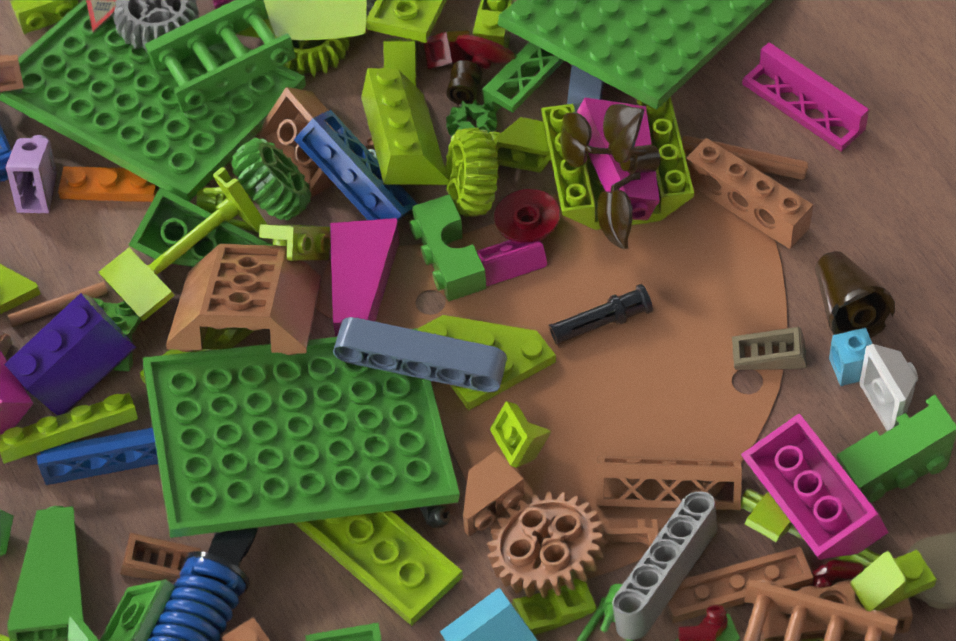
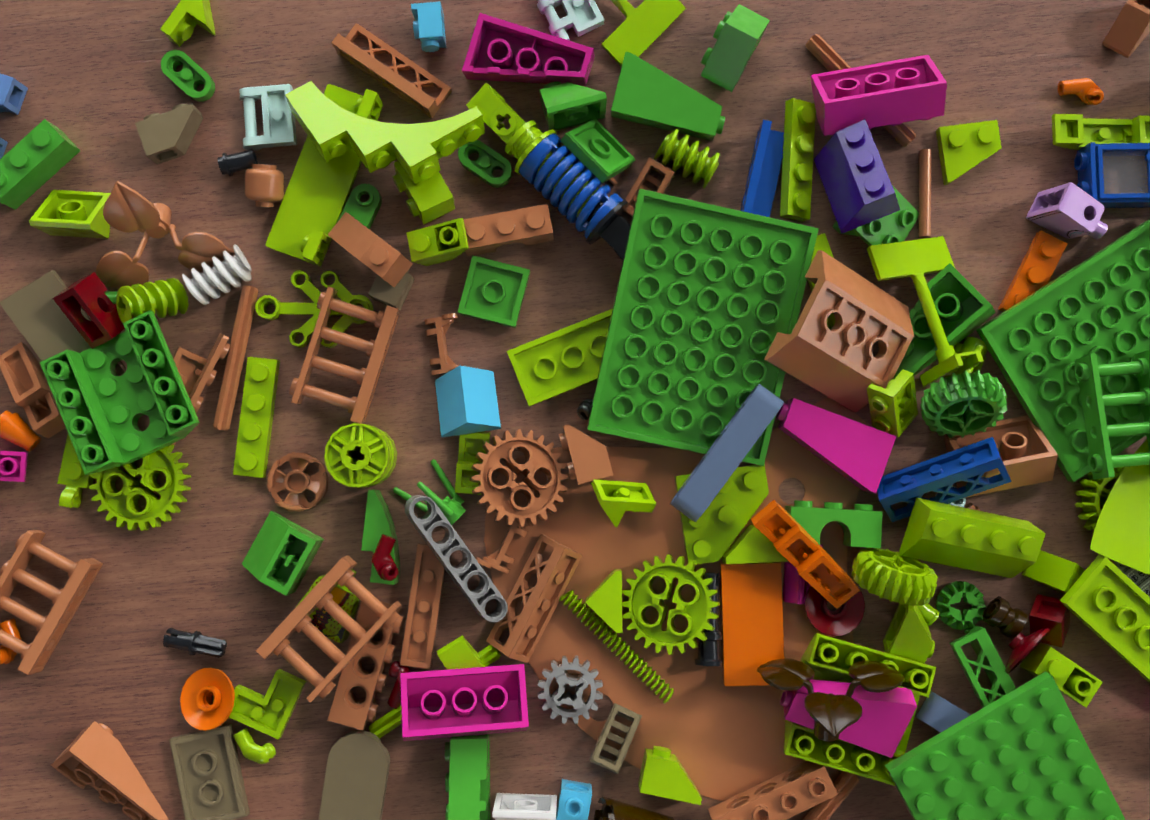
camera: 110 degrees right, 30 degrees up
(107, 529) = (688, 157): none -> lime piece
(488, 250) = (805, 554): none -> orange slope
(507, 304) = (752, 548): none -> lime slope
(582, 280) = (750, 620): none -> orange tile
(611, 380) = (643, 596): none -> lime gear
(628, 409) = (607, 600): none -> lime slope
(663, 395) = (619, 643): none -> lime piece
(743, 407) = (559, 697): none -> light grey gear
(778, 289) = (665, 777): none -> lime slope
(892, 580) = (356, 720): lime slope -> none

